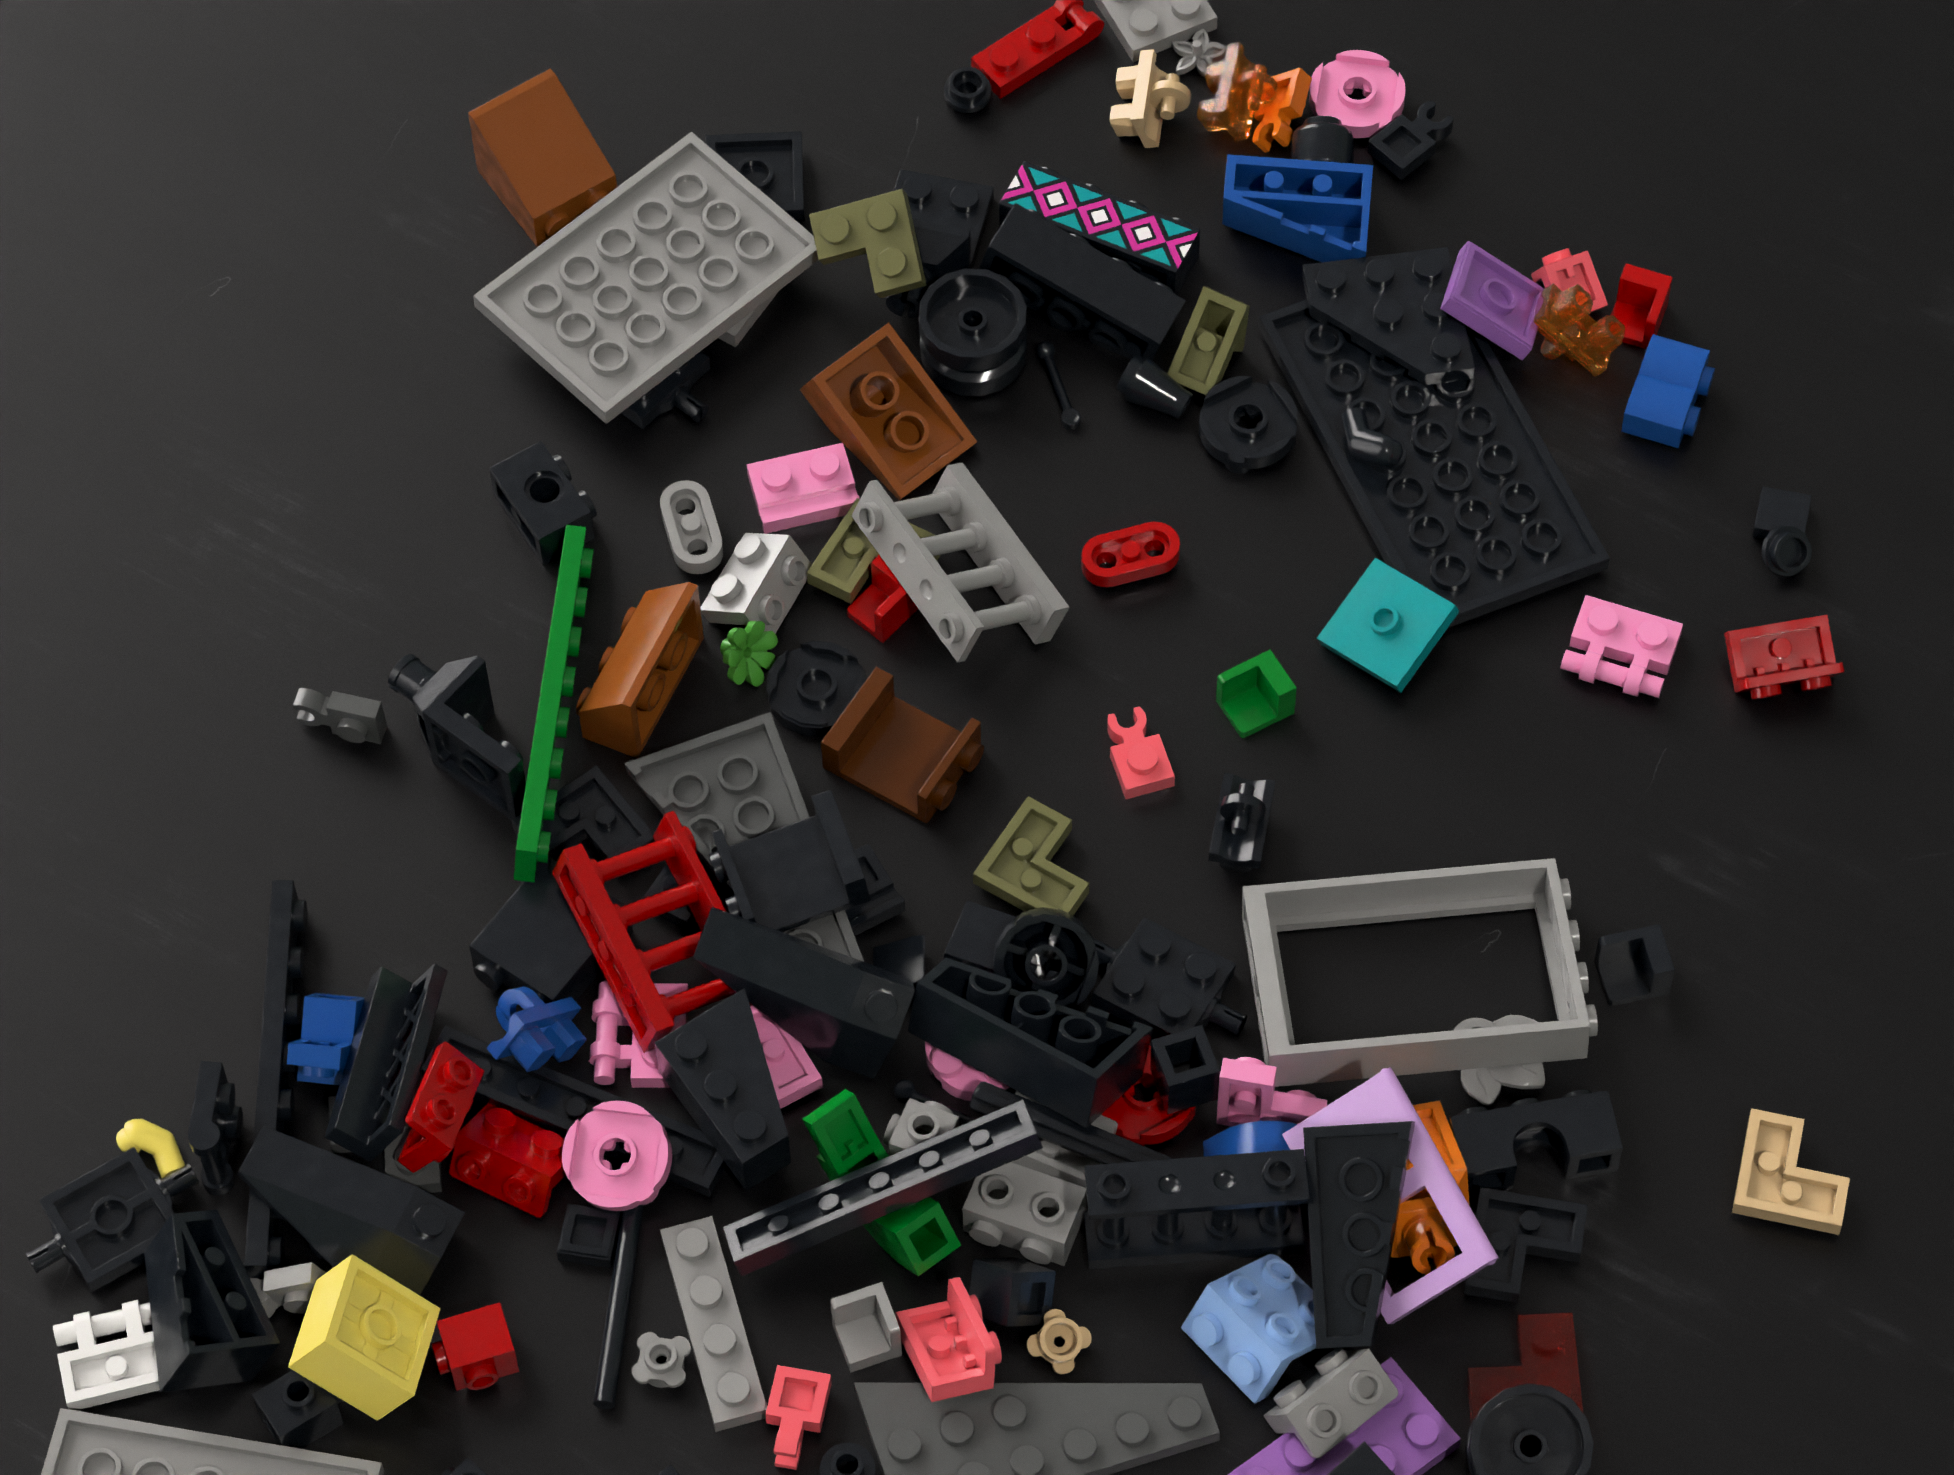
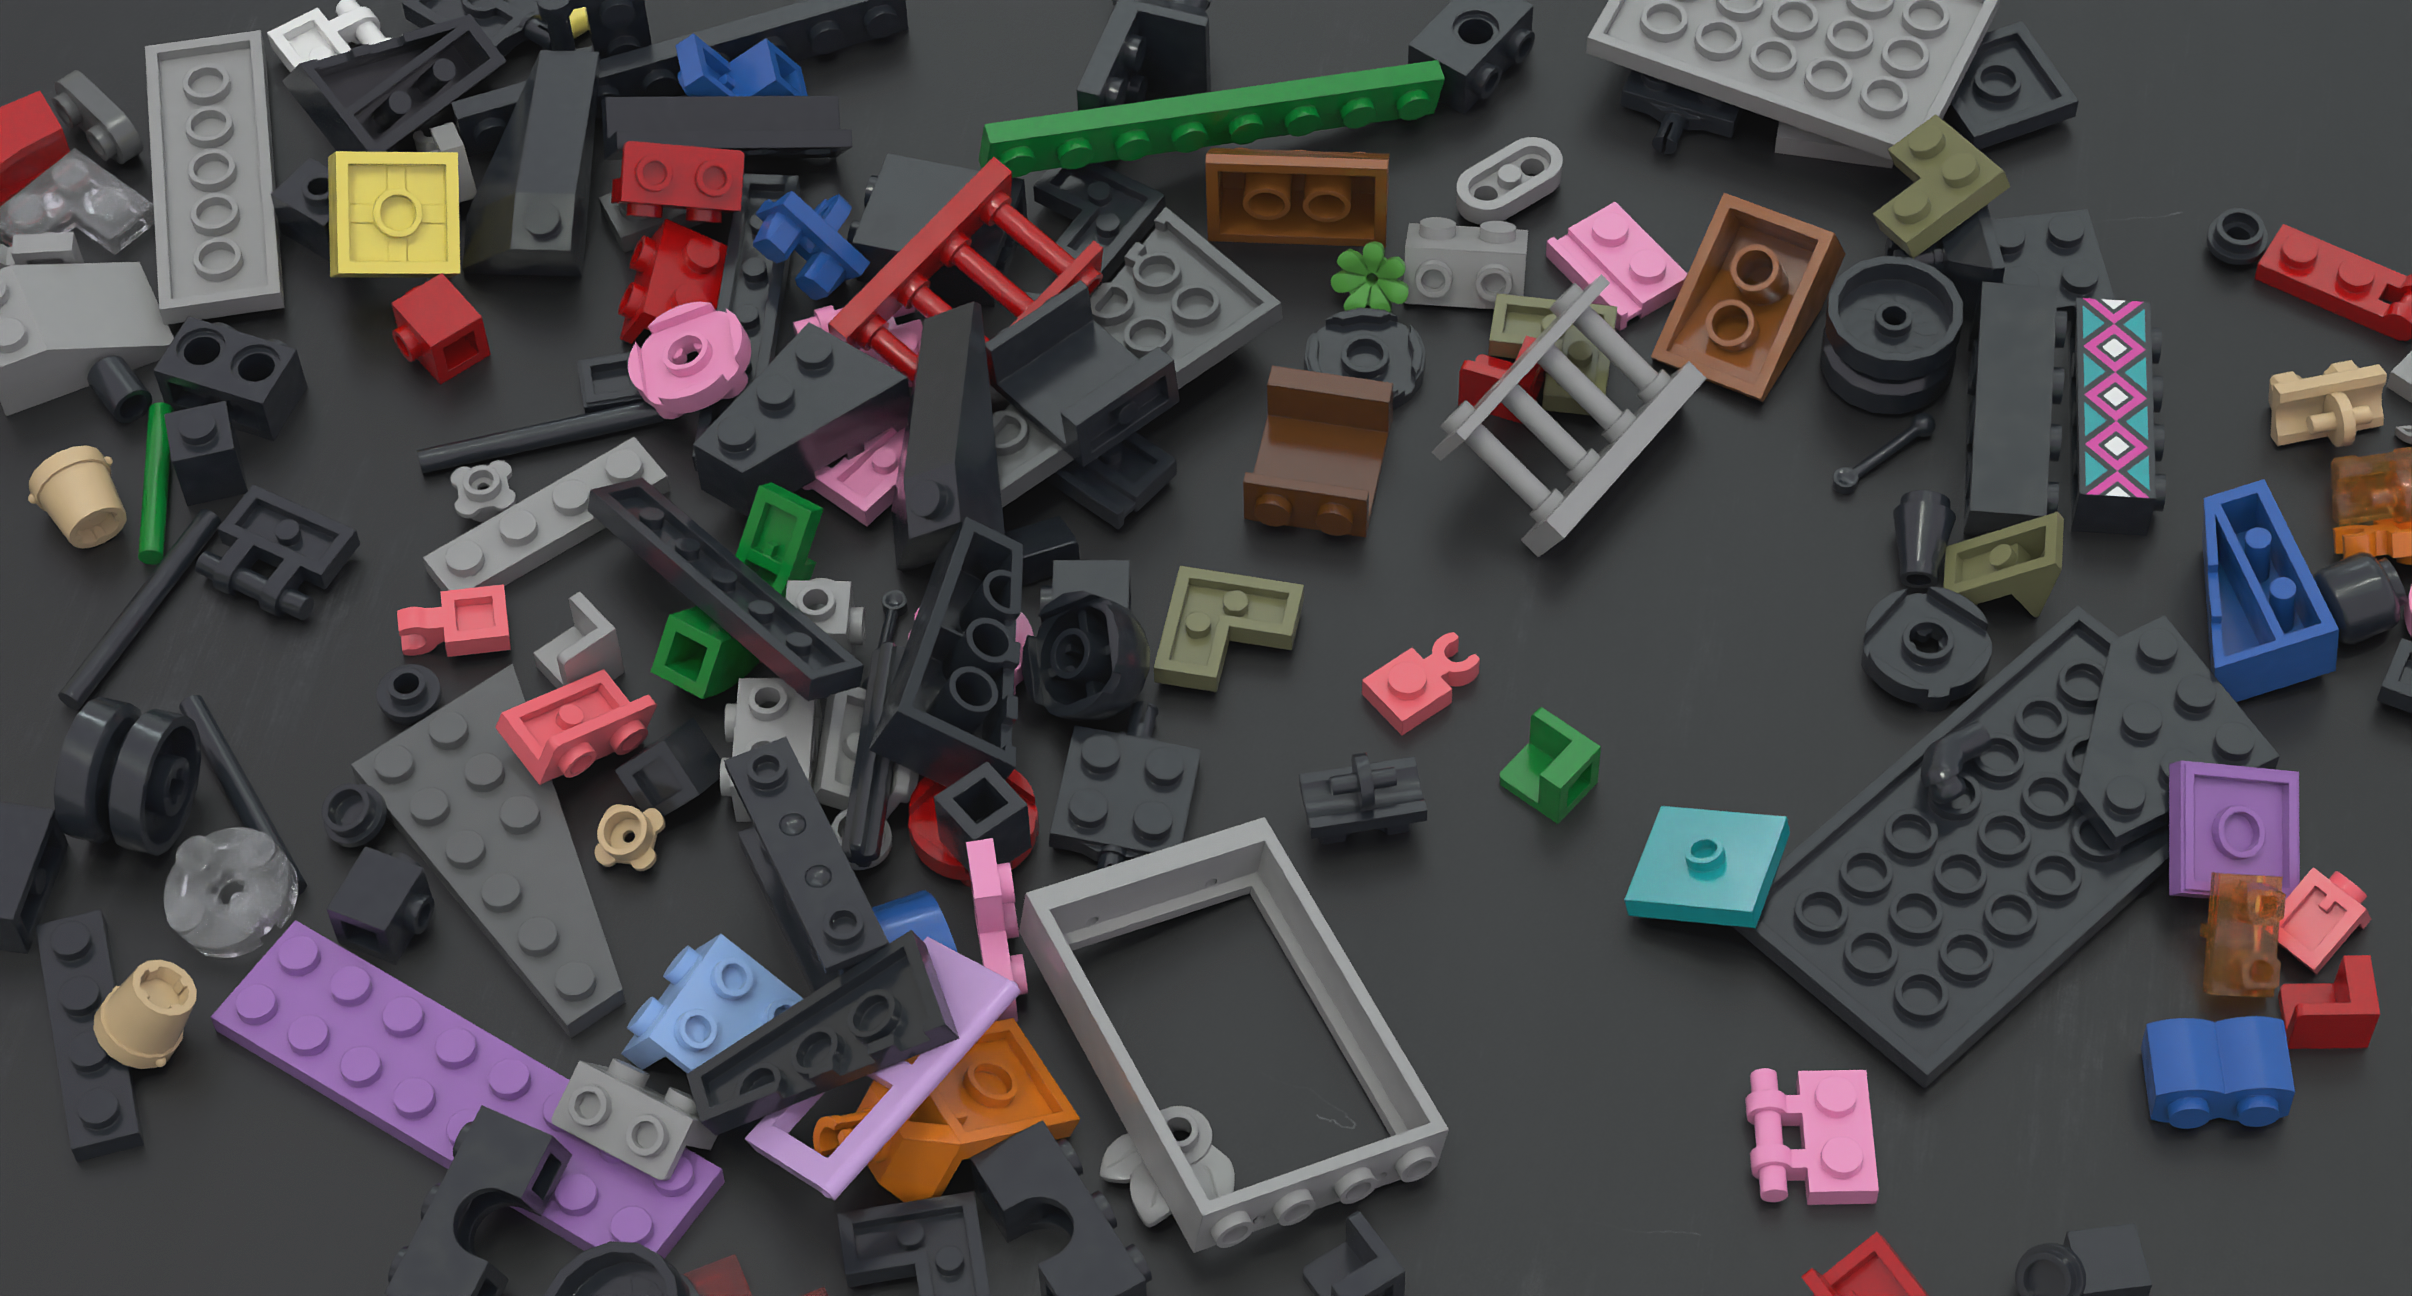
camera: 70 degrees right, 5 degrees down
(1128, 553) = (1686, 590): red plate -> none

